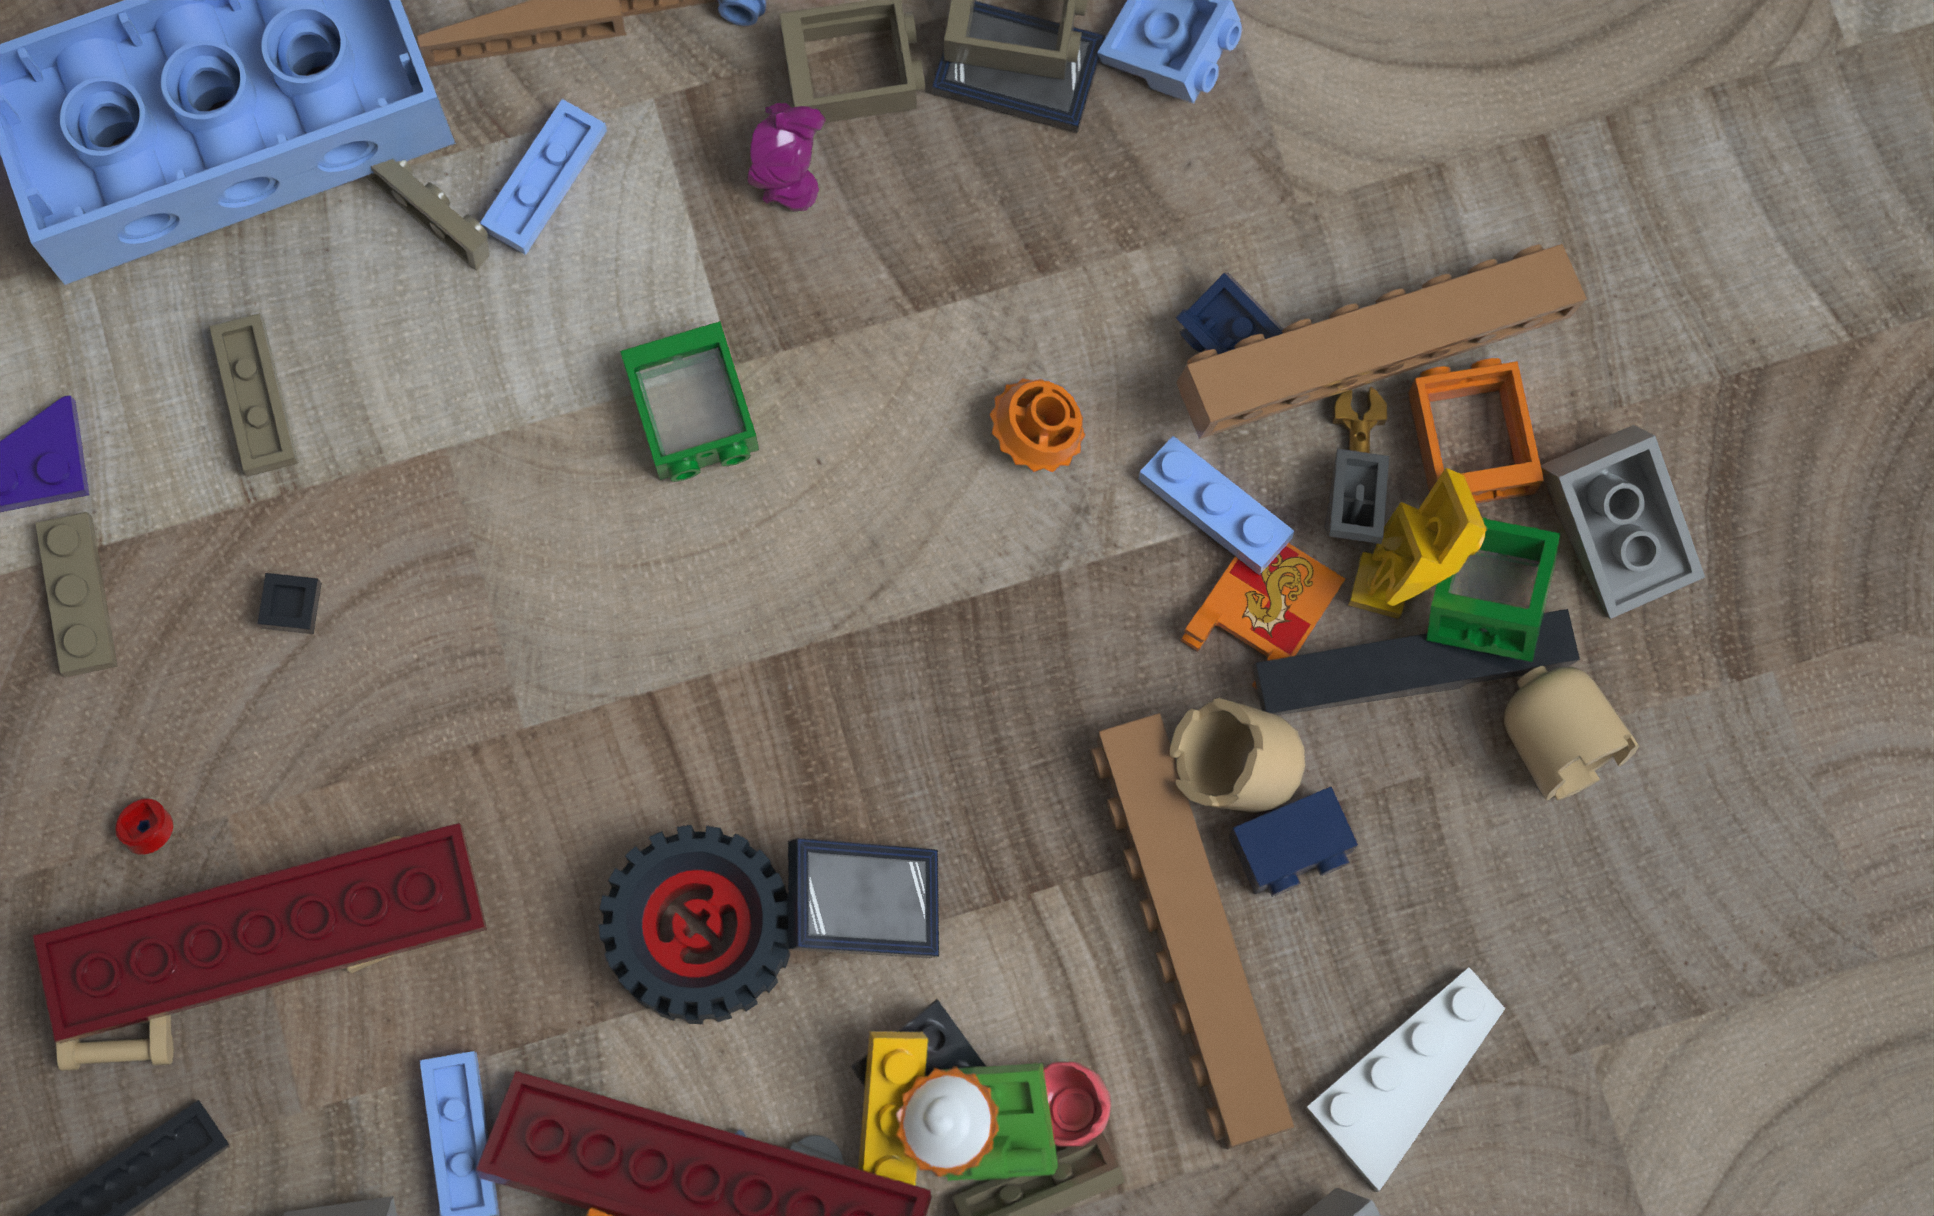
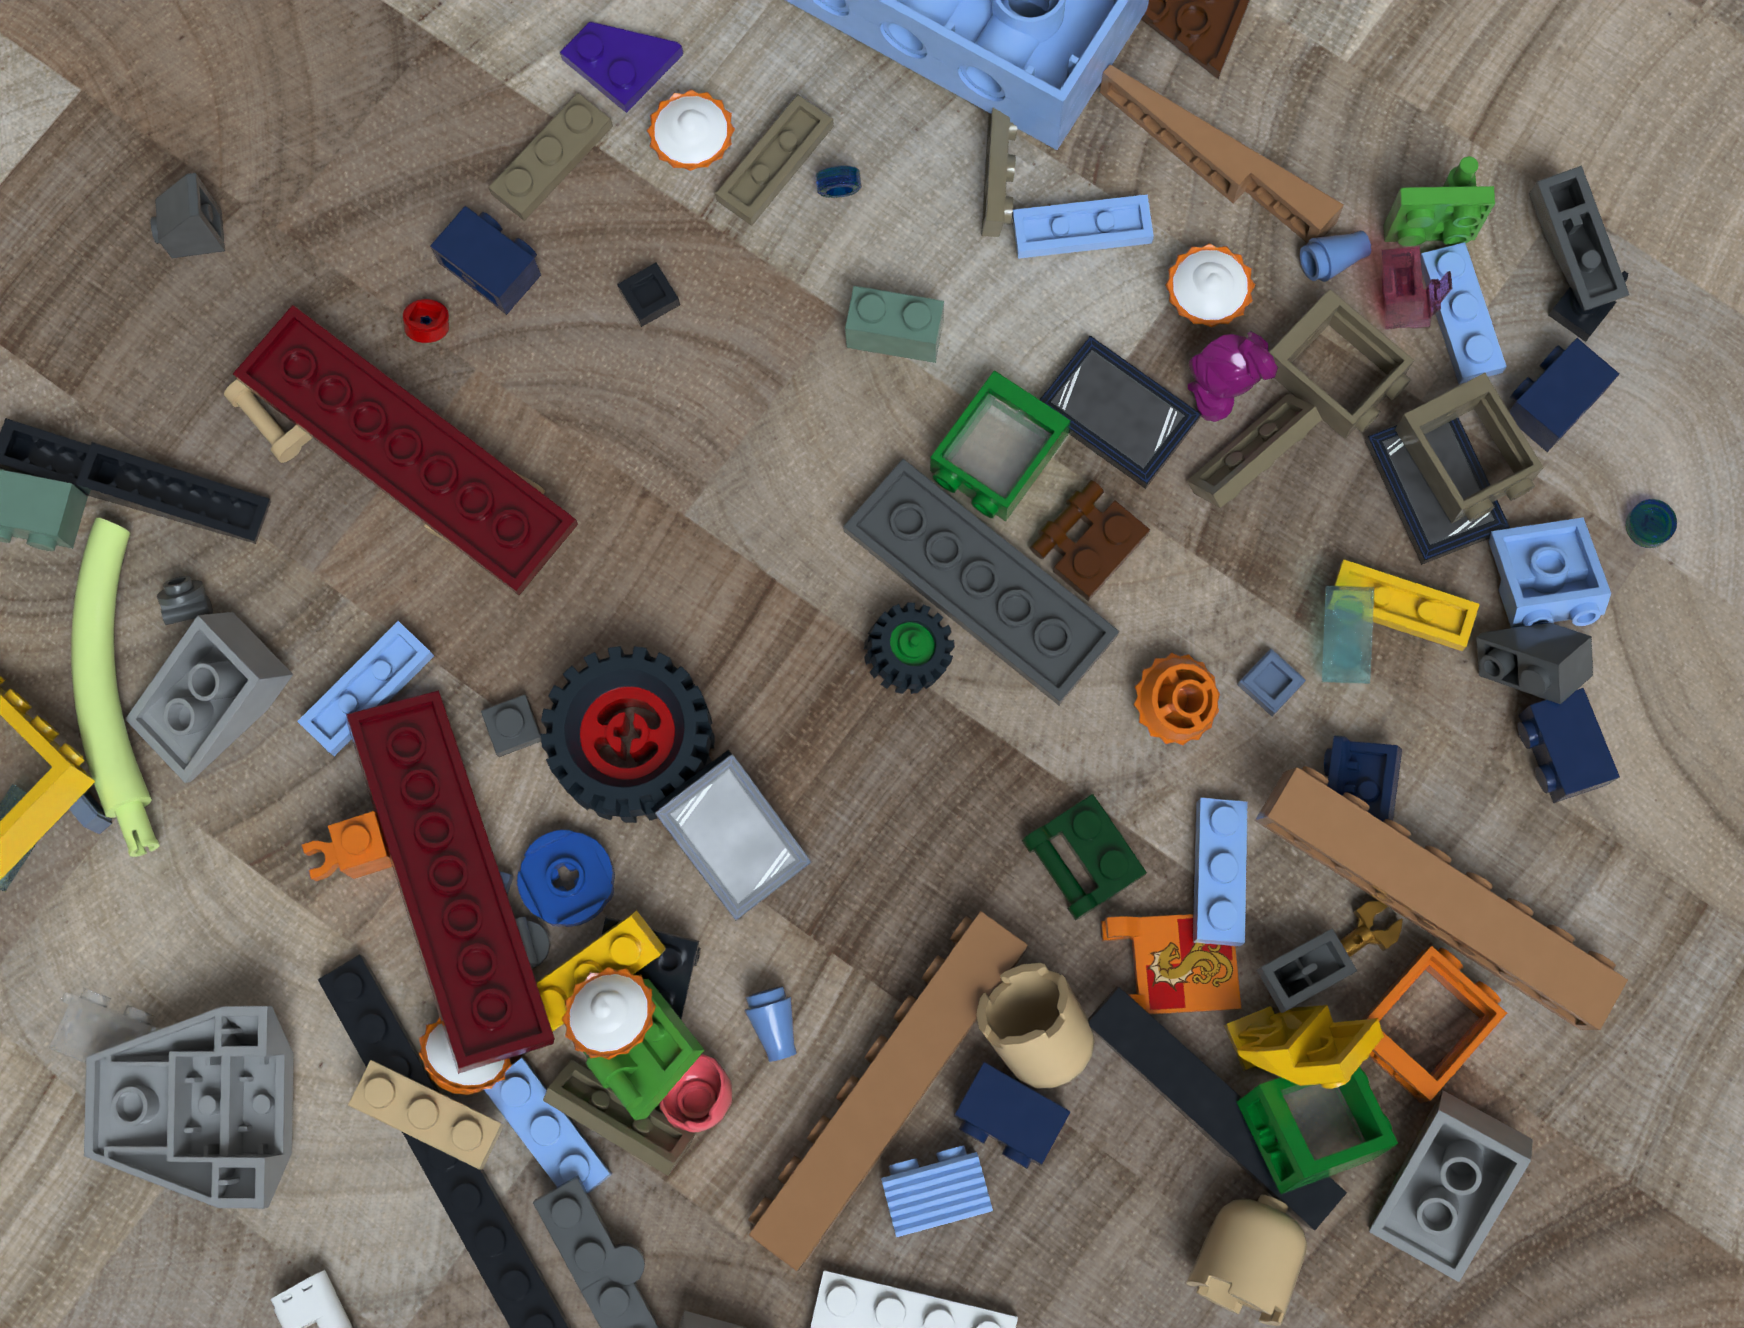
camera: 60 degrees right, 0 degrees up
(131, 725) = (487, 259): none -> dark blue brick
(163, 447) = (690, 130): none -> white piece
(323, 354) = (838, 181): none -> clear blue tile
(502, 405) = (894, 324): none -> sand green brick
(600, 1028) = (511, 725): none -> dark grey plate
(690, 110) = (1210, 285): none -> white piece
(740, 275) = (1120, 411): none -> tile
(765, 1055) = (540, 868): none -> blue plate
(798, 511) = (981, 581): none -> dark grey plate
(812, 618) = (908, 648): none -> black wheel
(851, 387) = (1101, 548): none -> reddish brown plate
(868, 190) = (1254, 450): none -> dark tan plate
(1054, 989) = (773, 1022): none -> medium blue cone
(1083, 336) = (1271, 682): none -> sand blue tile
(1095, 238) = (1348, 634): none -> clear light blue plate
(1103, 175) = (1413, 606): none -> yellow plate
(1114, 593) = (1098, 849): none -> dark green plate
(1238, 103) = (1537, 659): none -> dark grey slope
(1312, 956) = (936, 1192): none -> light blue brick
(1328, 138) = (1567, 746): none -> dark blue brick

